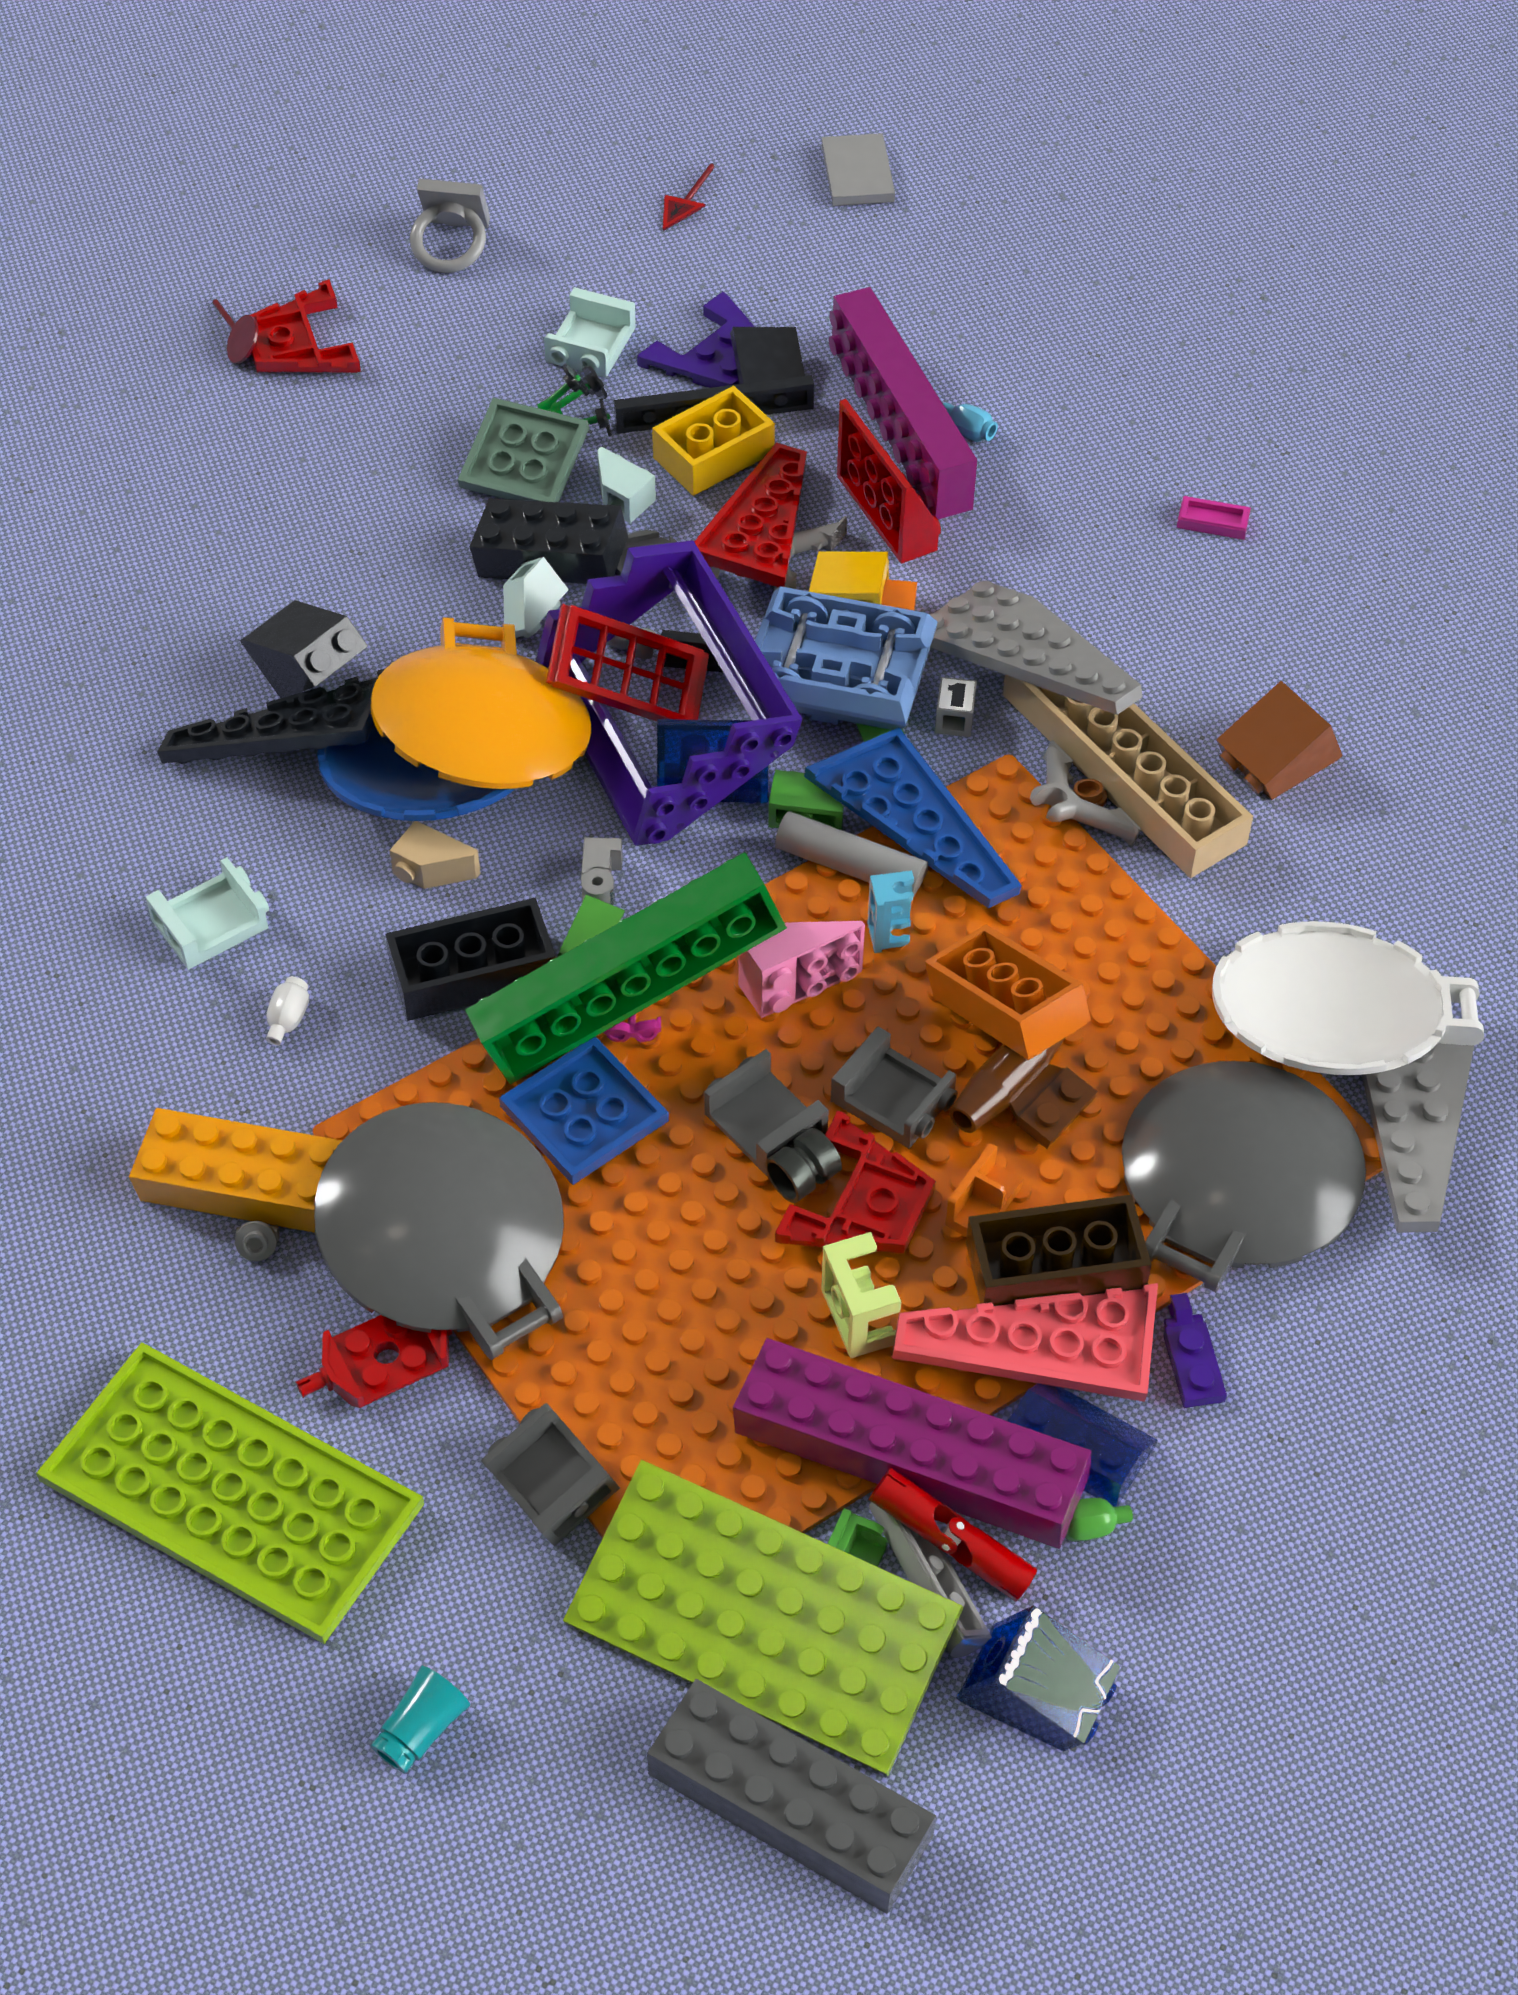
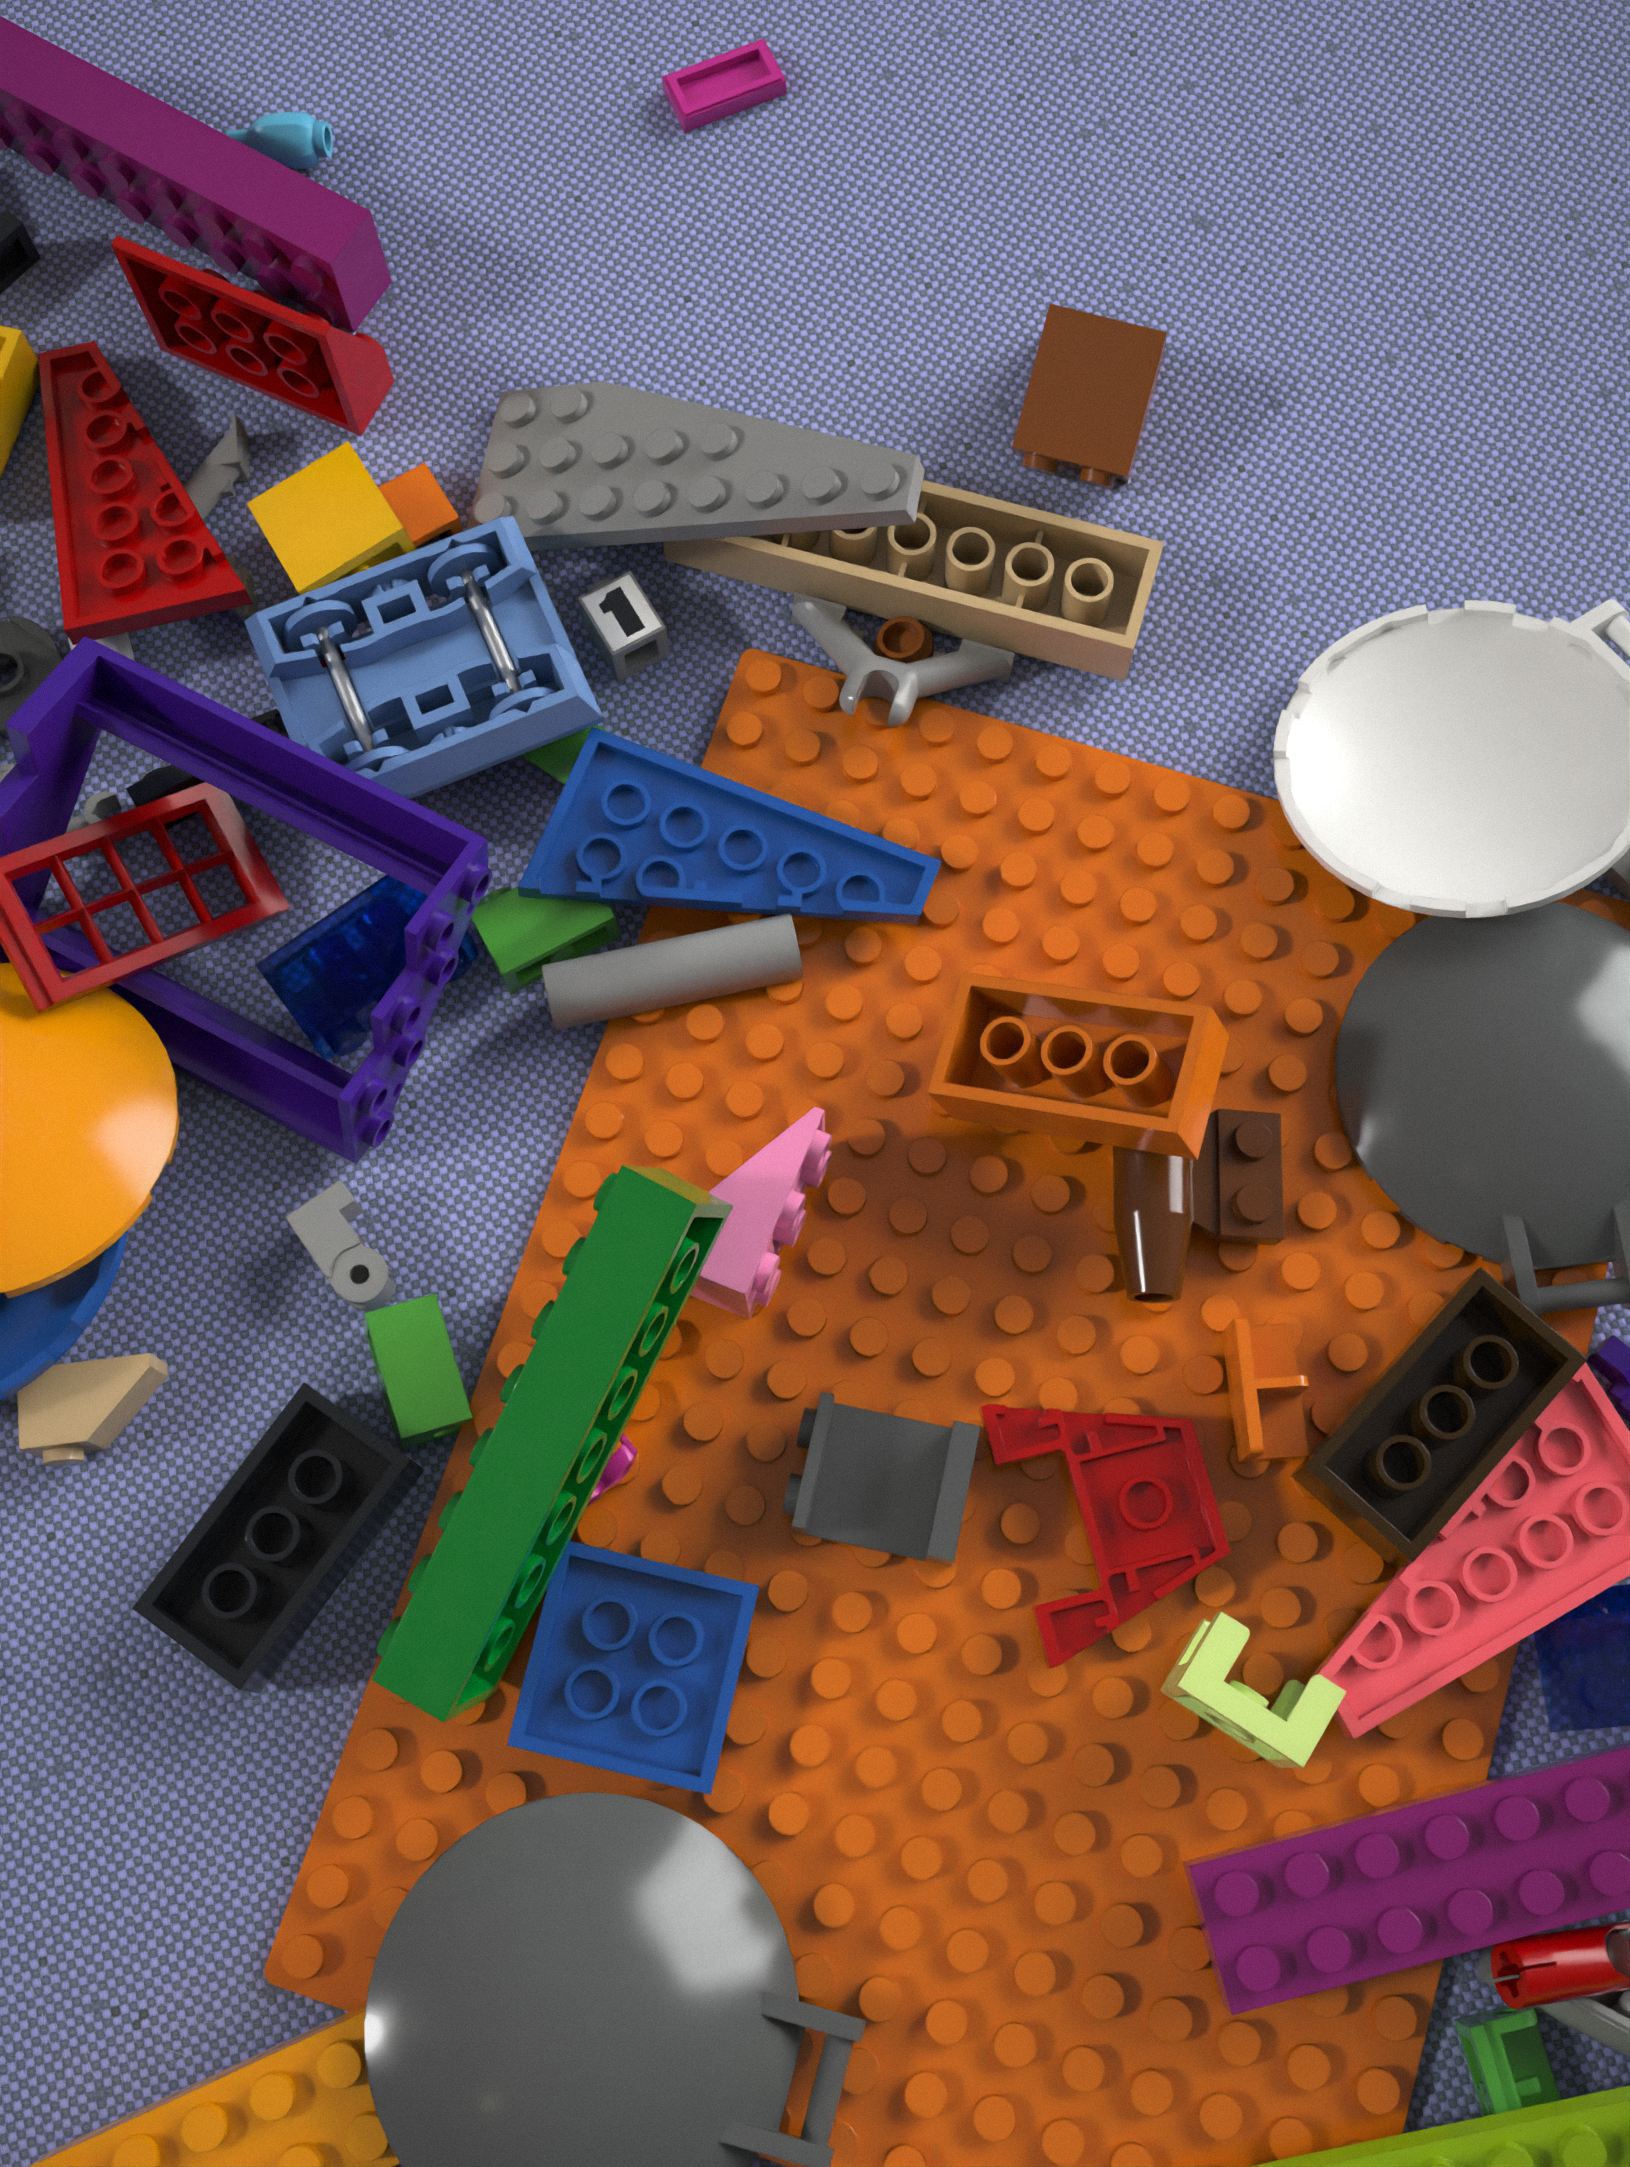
camera: 35 degrees left, 20 degrees up
(286, 1008) = (71, 1815): white plant -> none
(799, 1168) = (1005, 1531): pearl dark grey wheel -> none
(889, 908) = (804, 1036): medium azure hinge -> none
(892, 1090) = (1025, 1312): dark grey panel -> none

